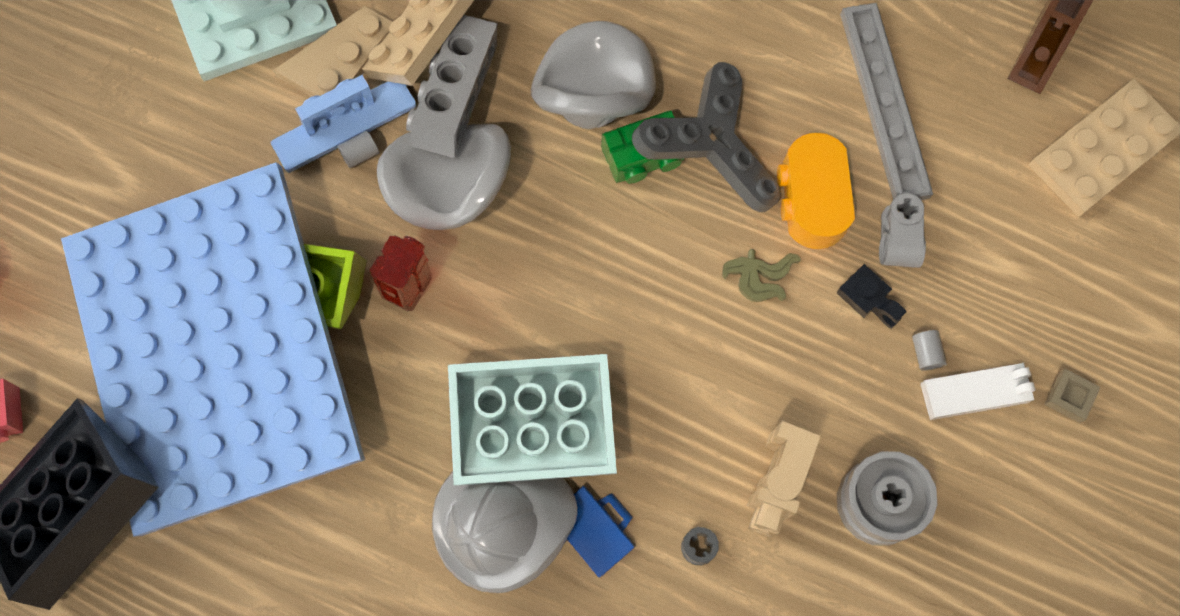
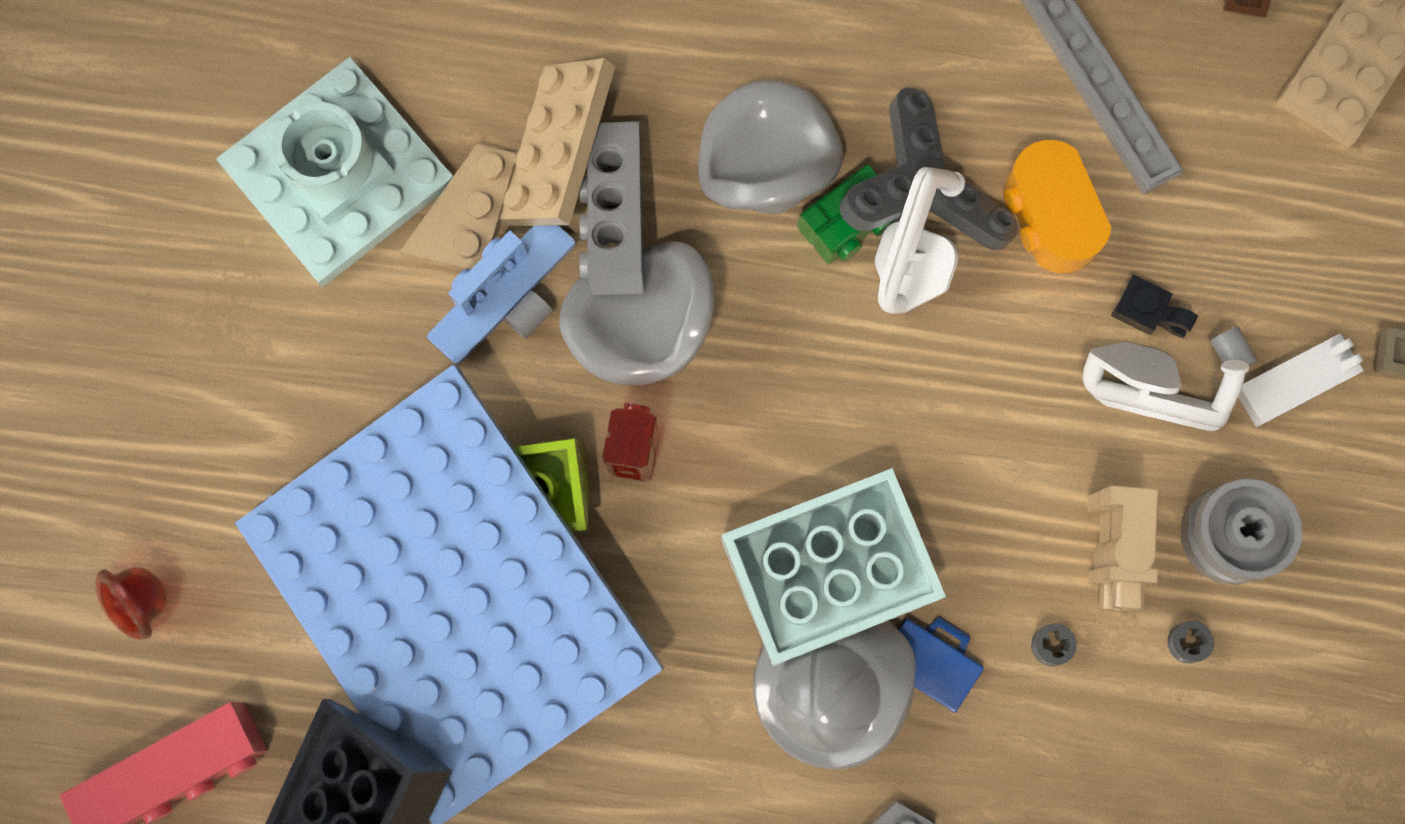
camera: 10 degrees left, 5 degrees up
(684, 197) = (911, 260): none -> white piece
(749, 282) = (1011, 331): olive piece -> none
(823, 590) = (1200, 652): none -> dark grey bush
(855, 348) = (1155, 384): none -> white piece
(901, 238) = (1165, 227): light grey piece -> none

